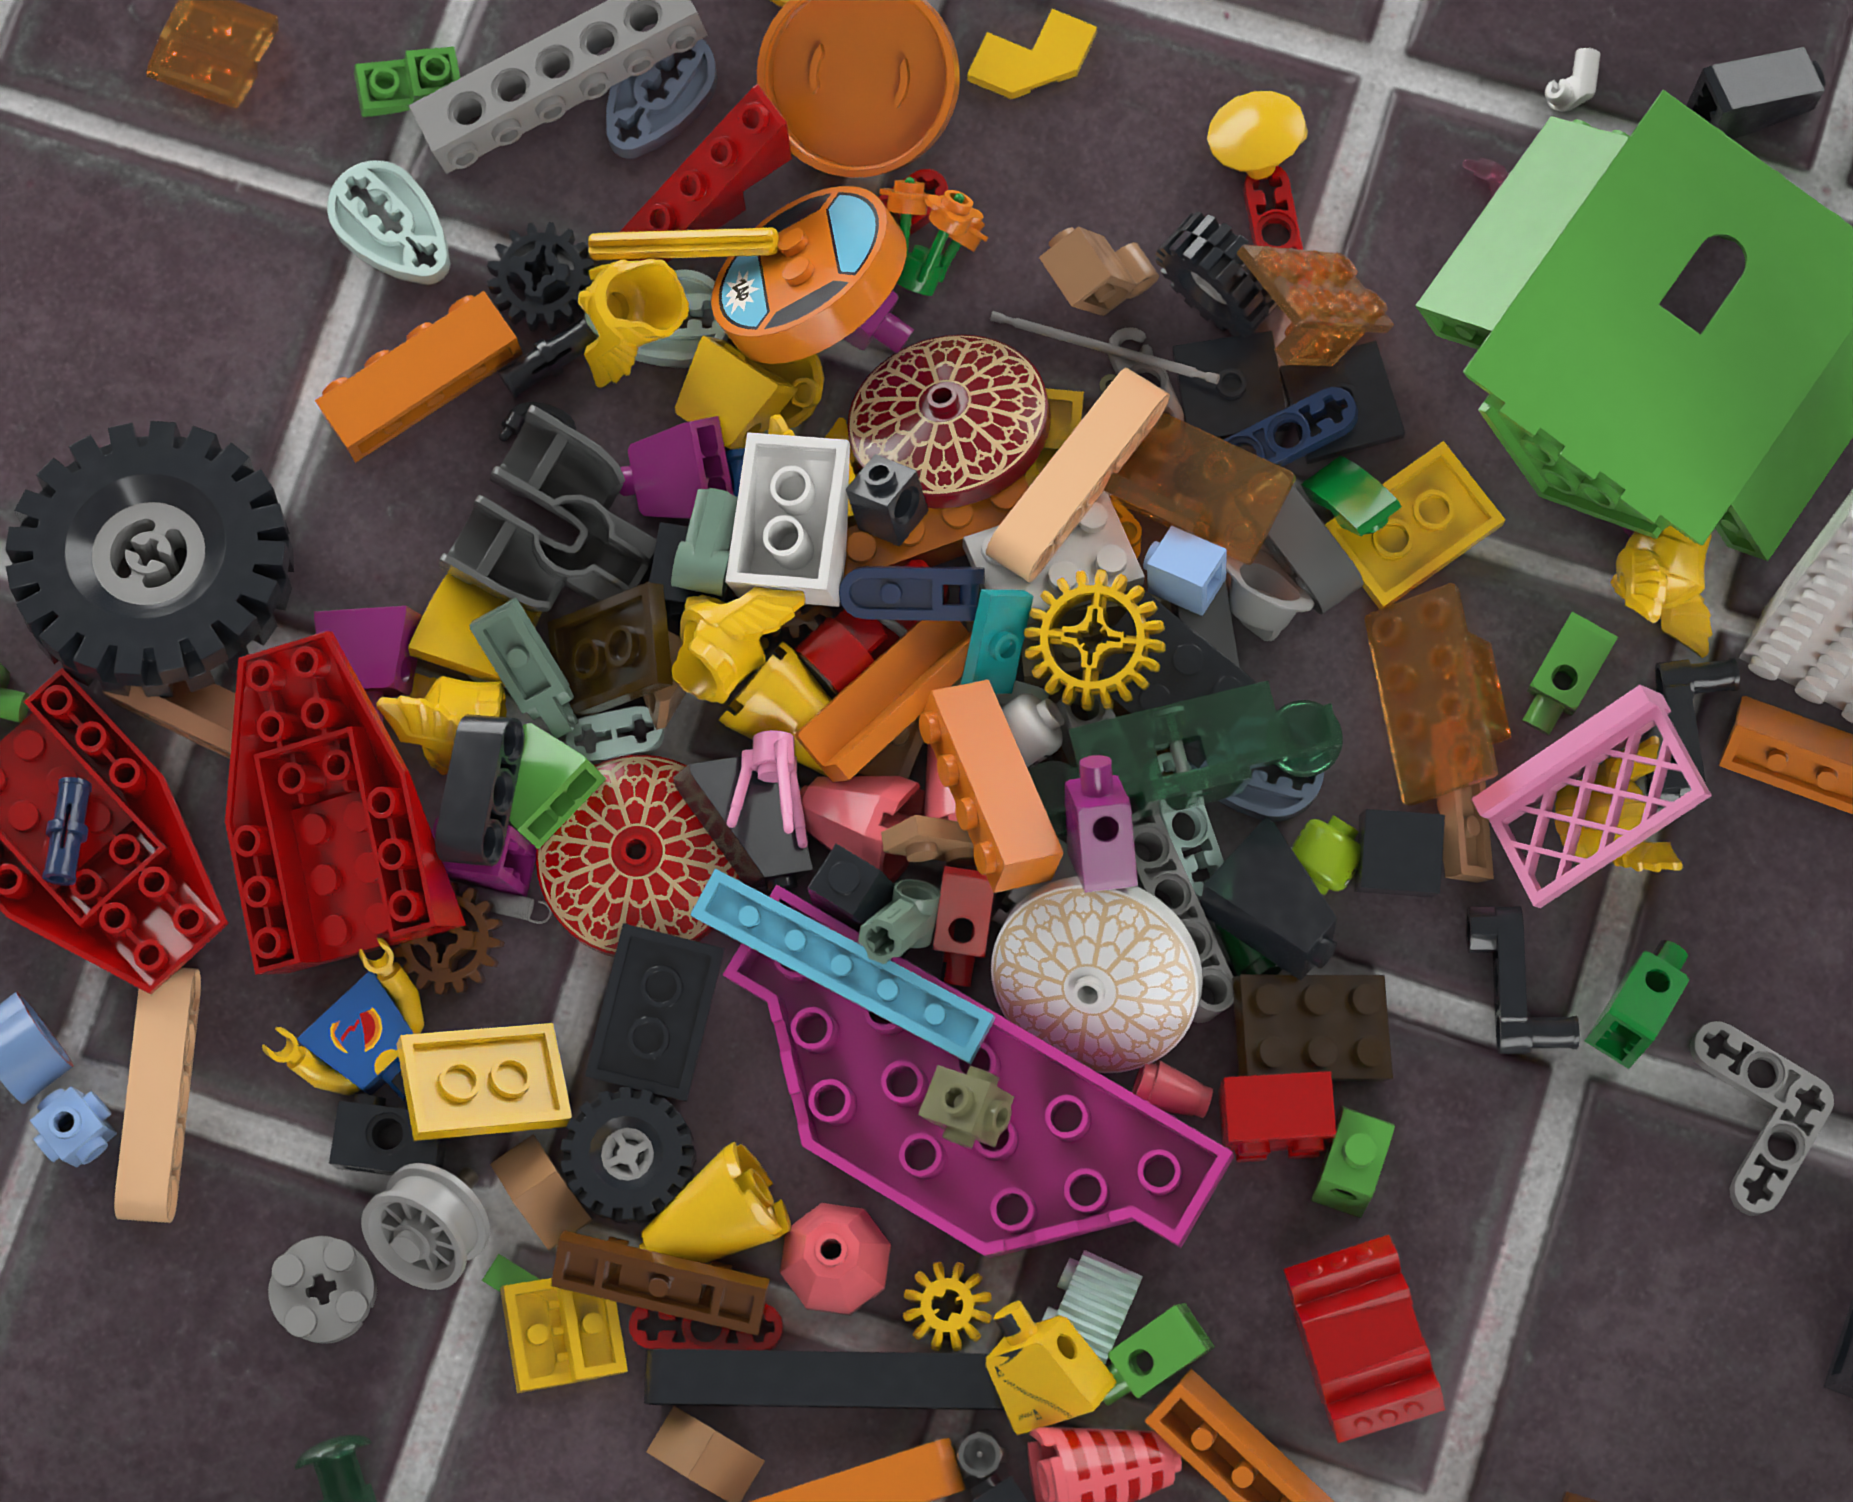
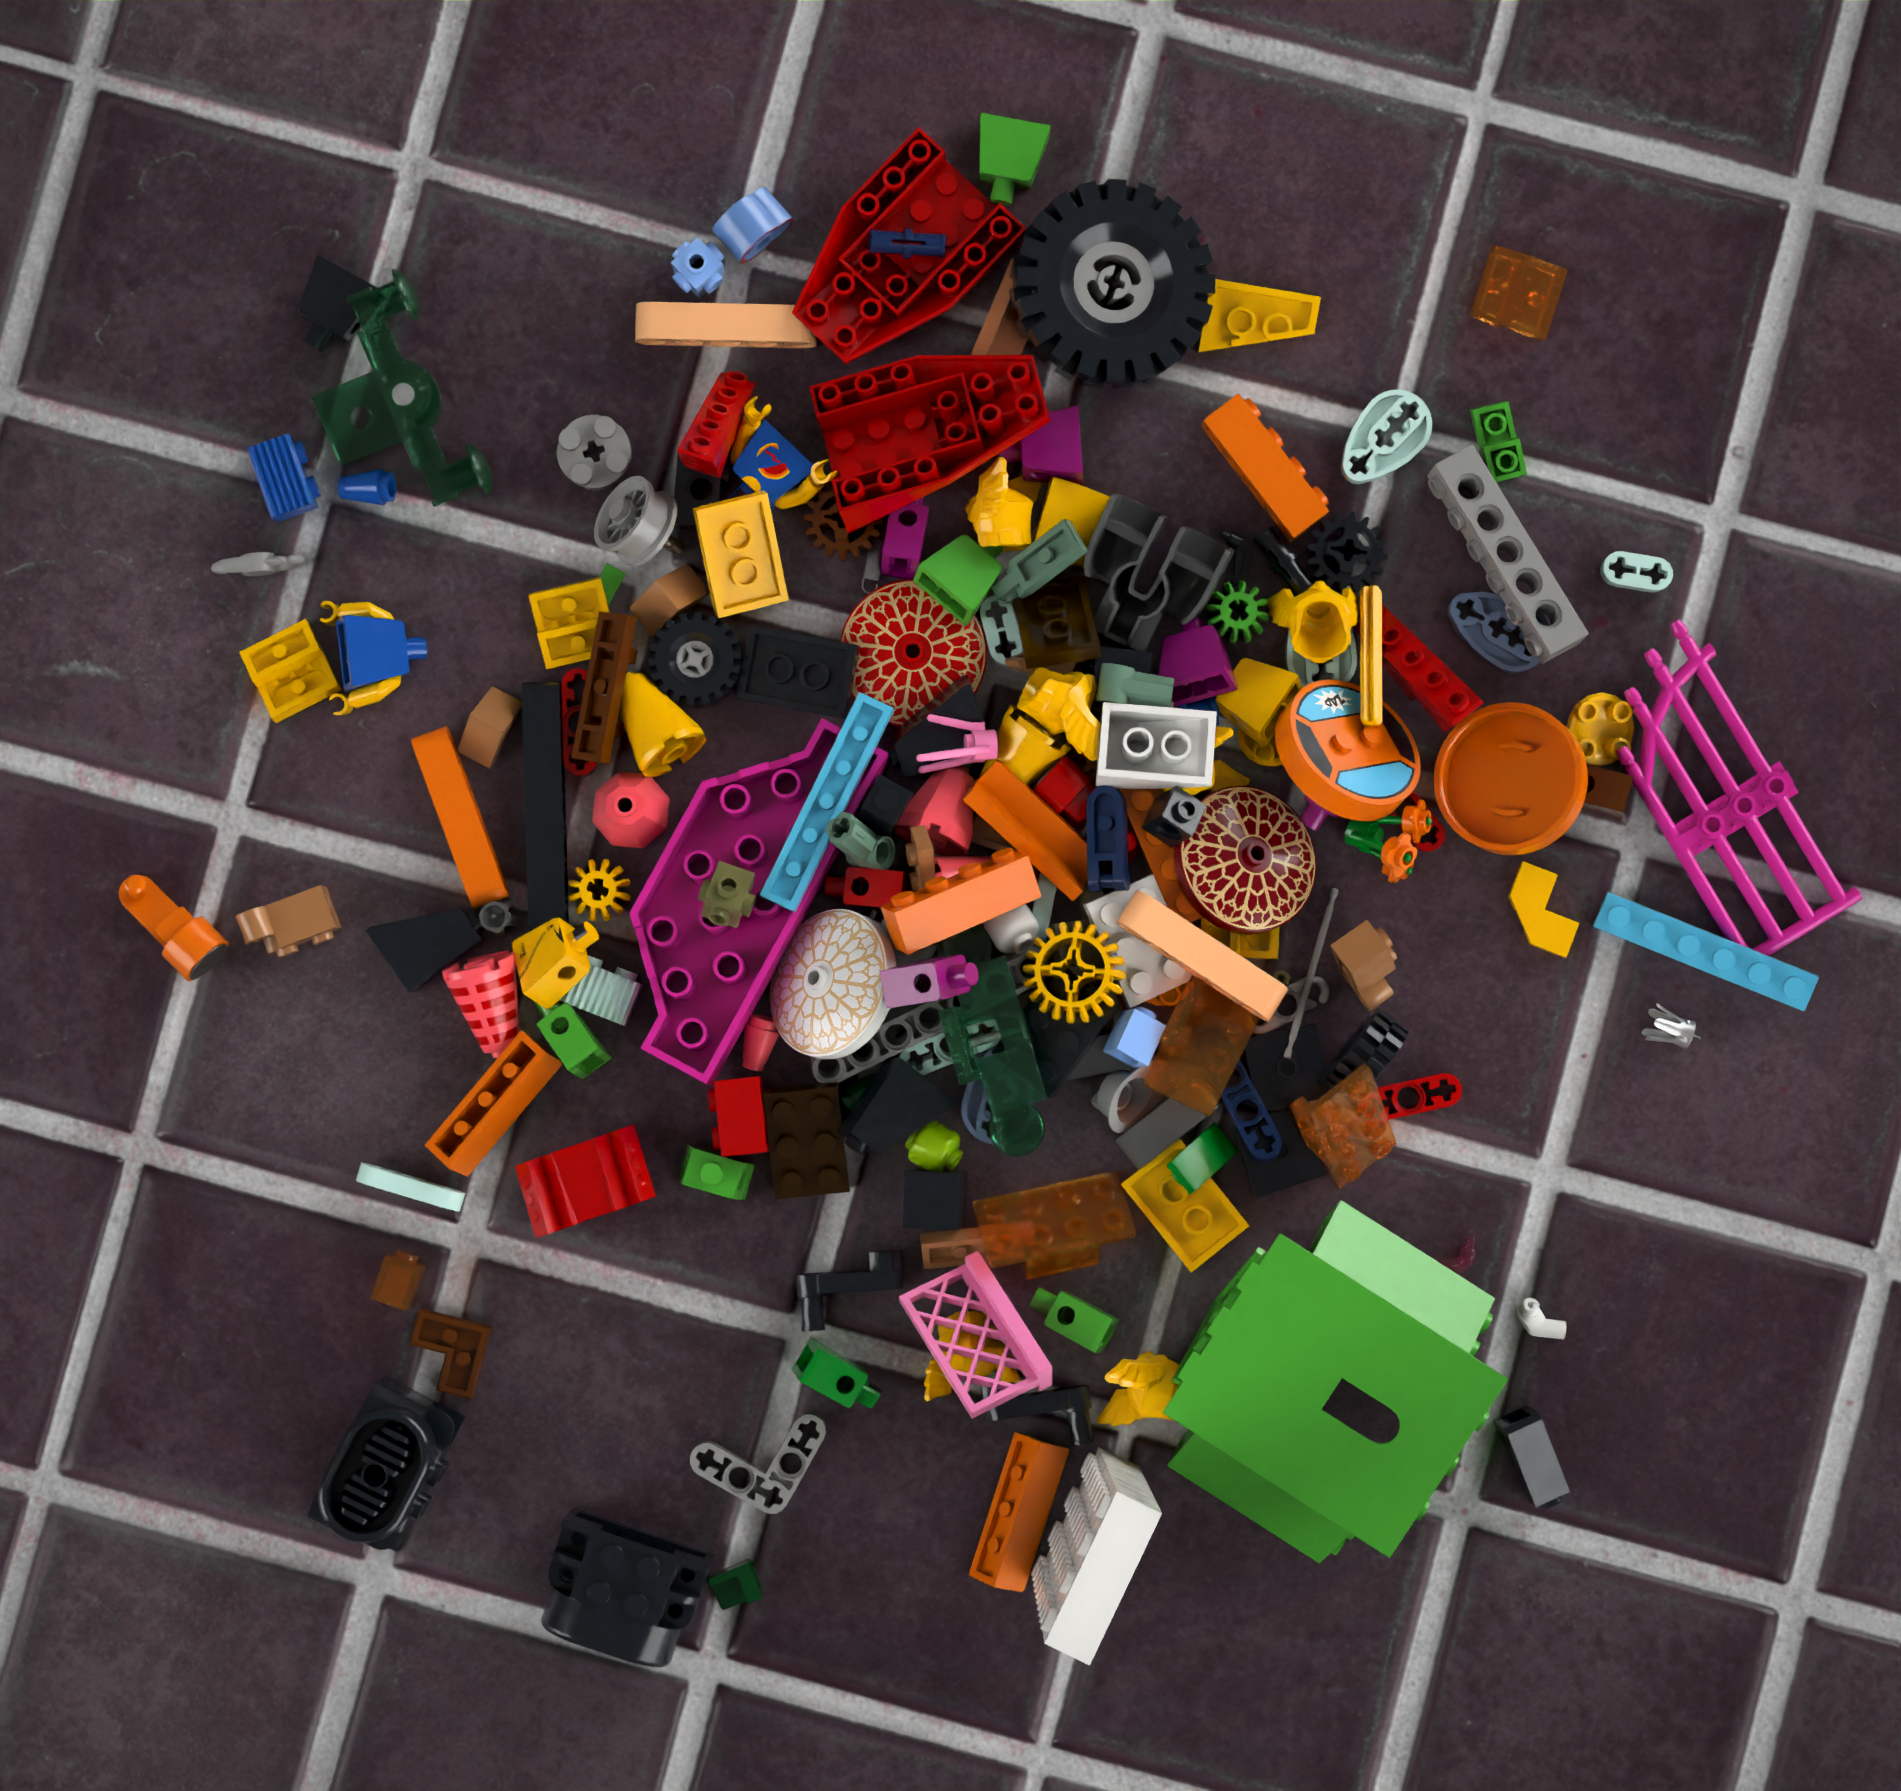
camera: 80 degrees right, 10 degrees up
(212, 375) = (1256, 315): none -> yellow wing
(299, 1102) = (716, 424): none -> red slope
(479, 790) = (942, 535): black beam -> none
(615, 404) = (1250, 613): none -> bright green gear
(997, 638) = (1072, 902): teal plate -> none
(1256, 132) = (1485, 1080): yellow dish -> none

